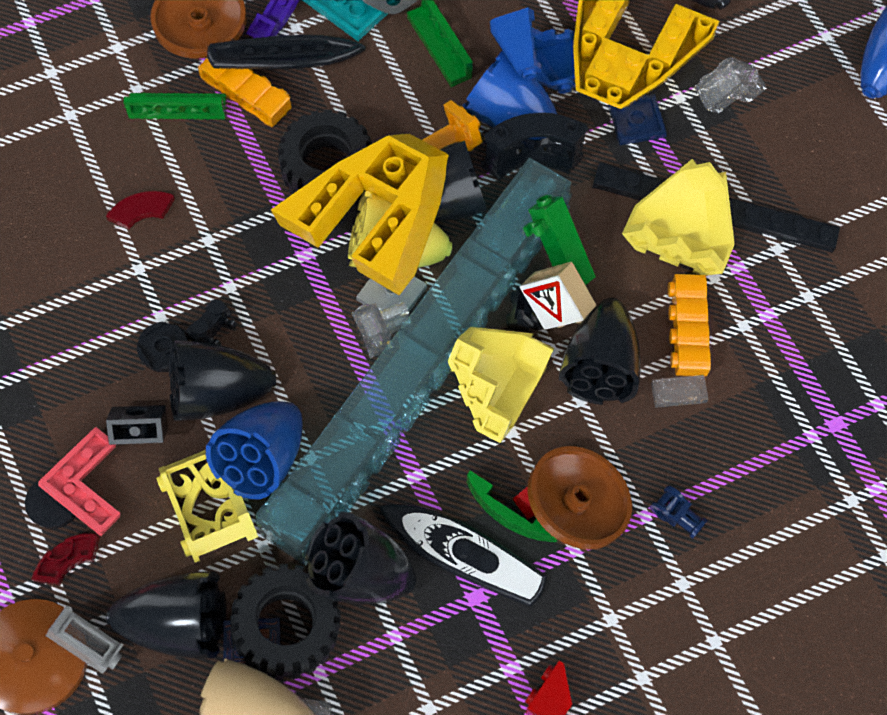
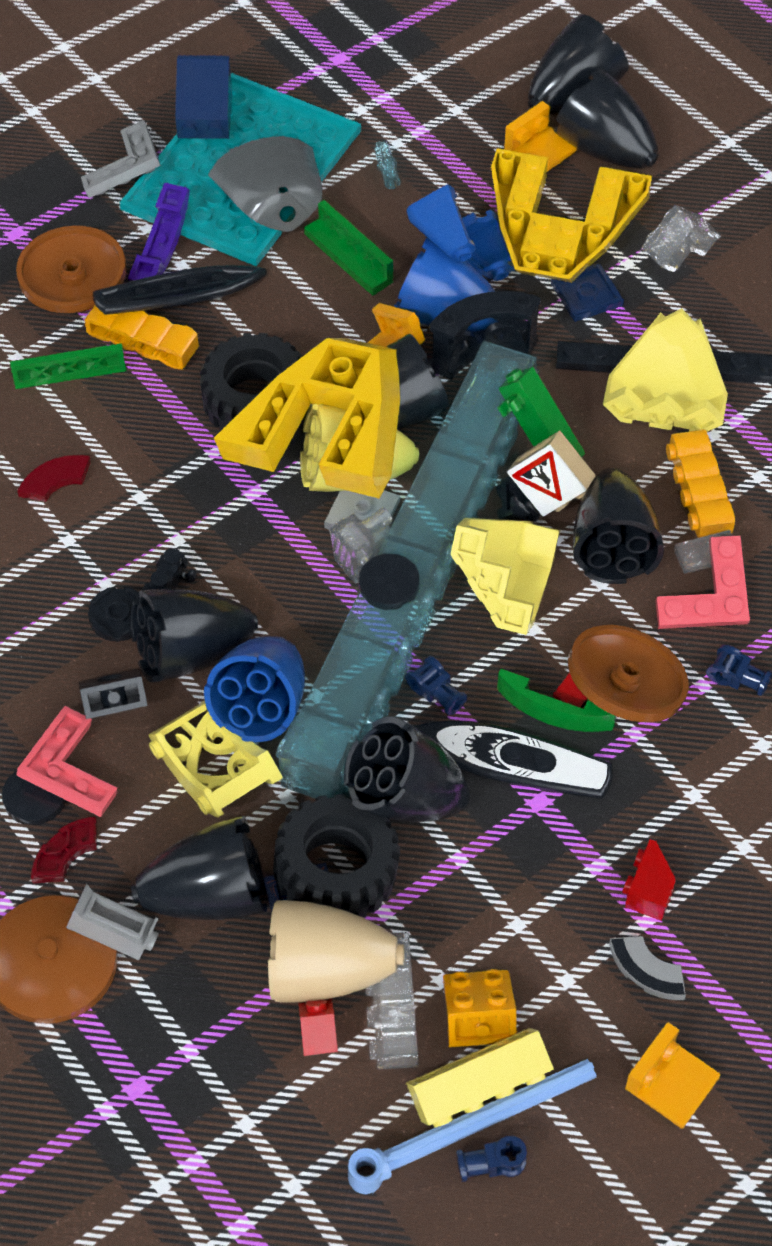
camera: 10 degrees left, 10 degrees down
(389, 375) = (389, 581): none -> black tile
(412, 470) = (434, 684): none -> dark blue connector
(686, 444) = (724, 607): none -> coral plate

